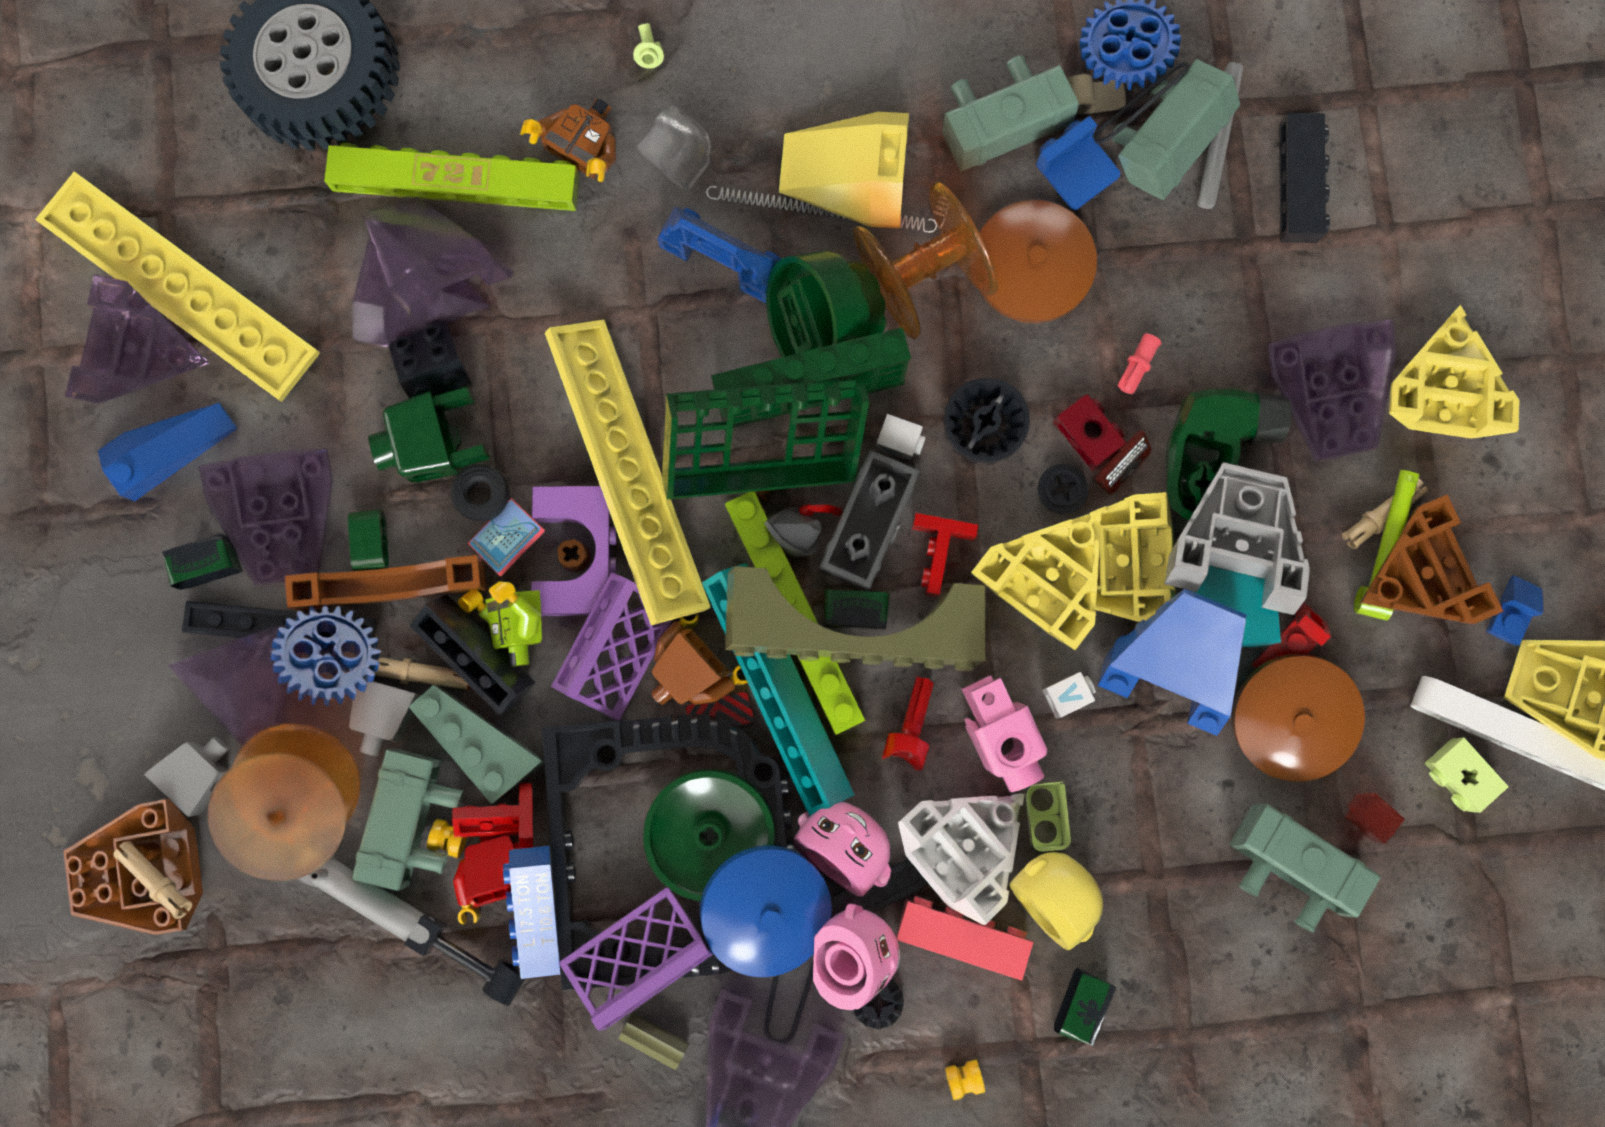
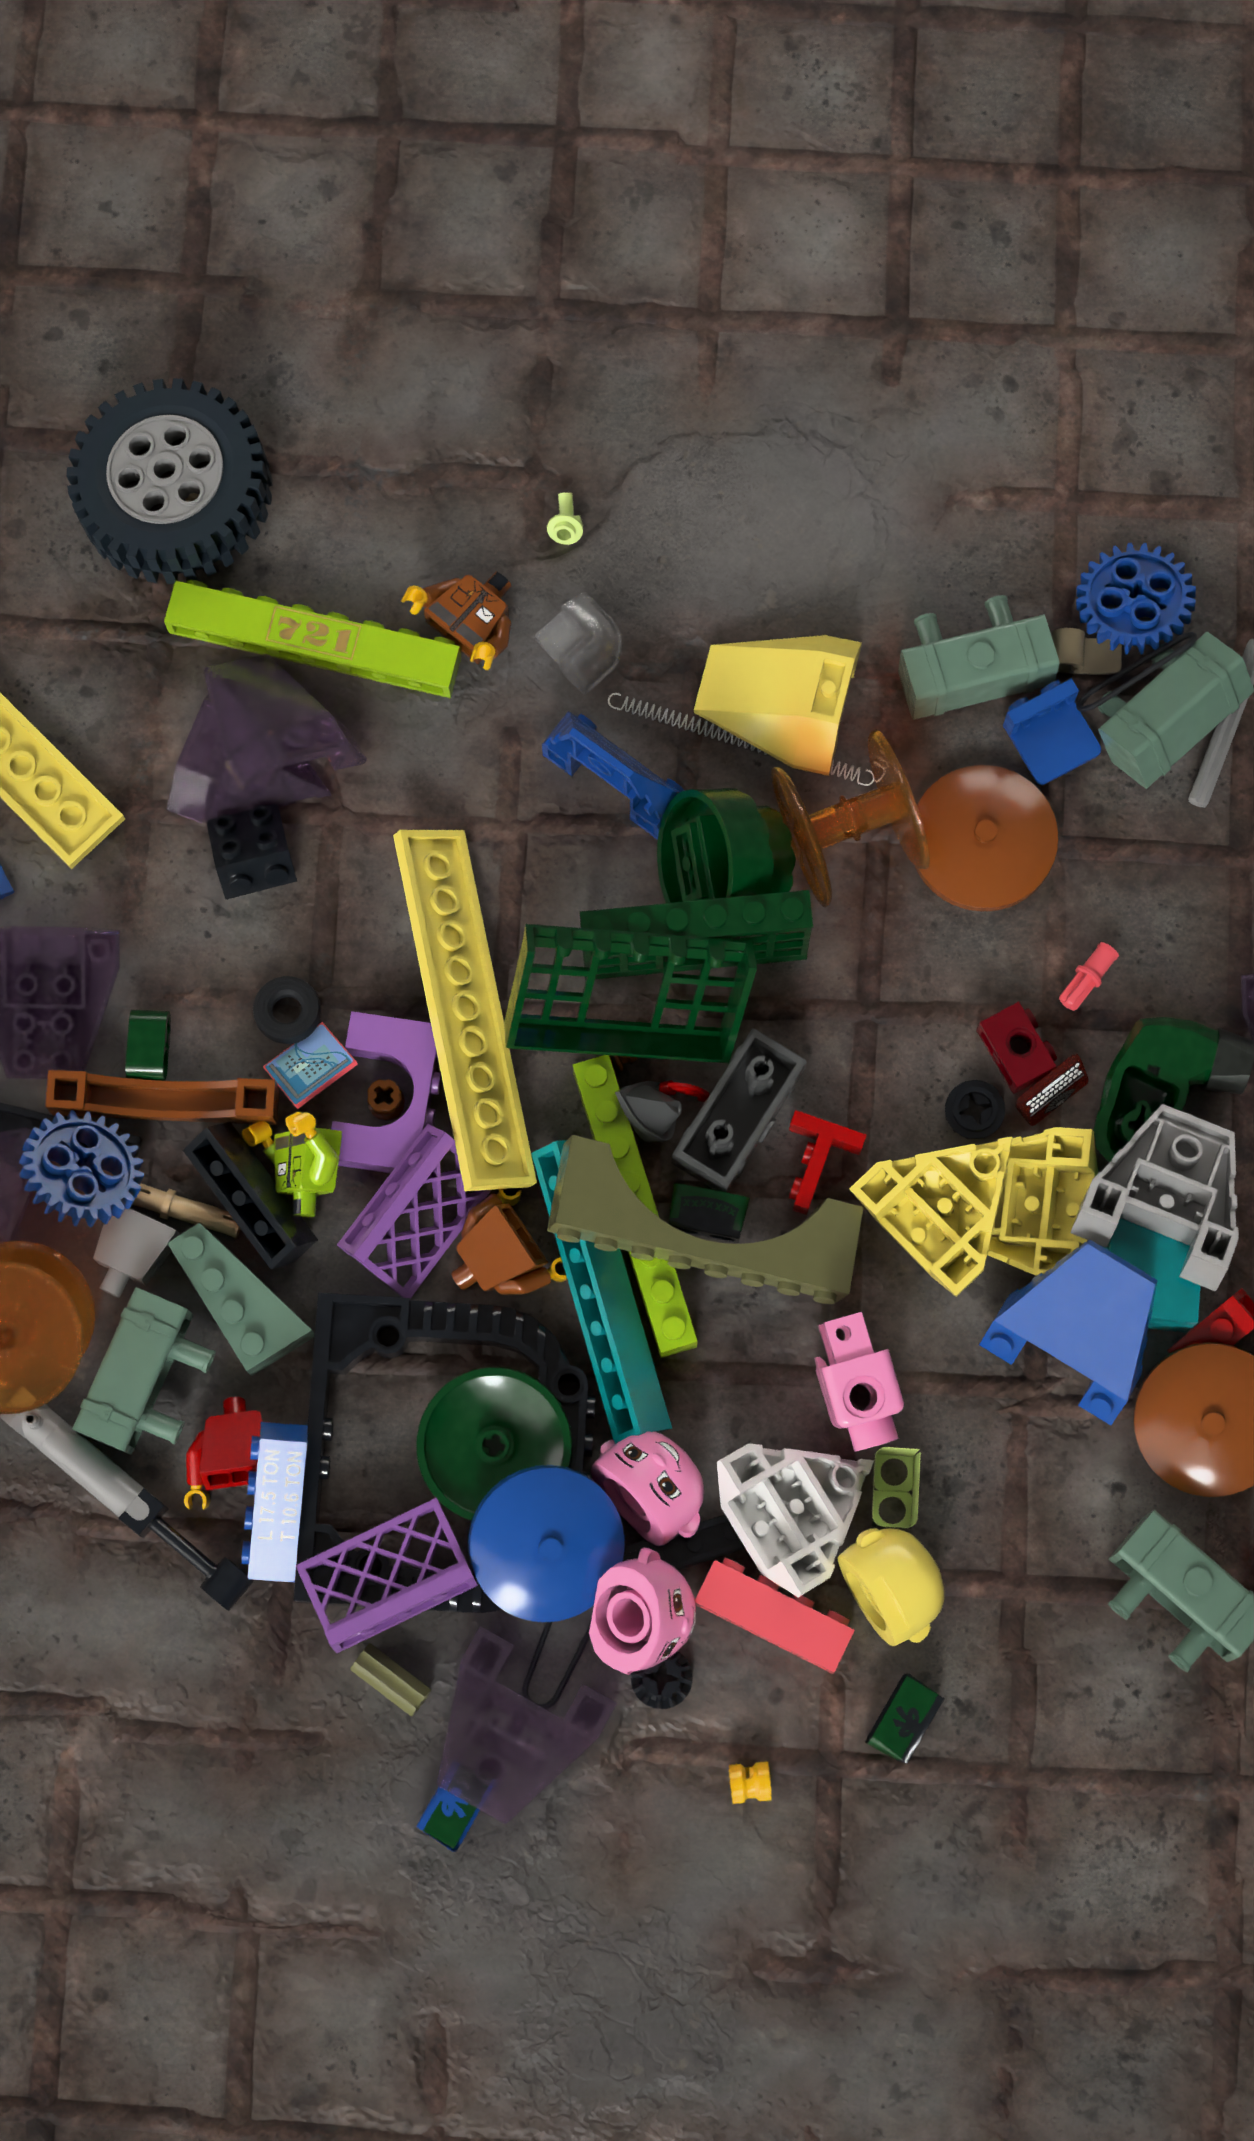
camera: 10 degrees right, 5 degrees down
(422, 440) = (230, 938): dark green piece -> none
(442, 838) = (187, 1405): yellow wheel -> none
(498, 819) = (249, 1389): red bracket -> none
(732, 708) = (544, 1306): tile -> none
(900, 438) = (791, 1020): white brick -> none
(907, 744) = (744, 1379): red piece -> none
(999, 397) = (917, 992): black gear -> none
(1070, 694) = (944, 1351): white brick -> none

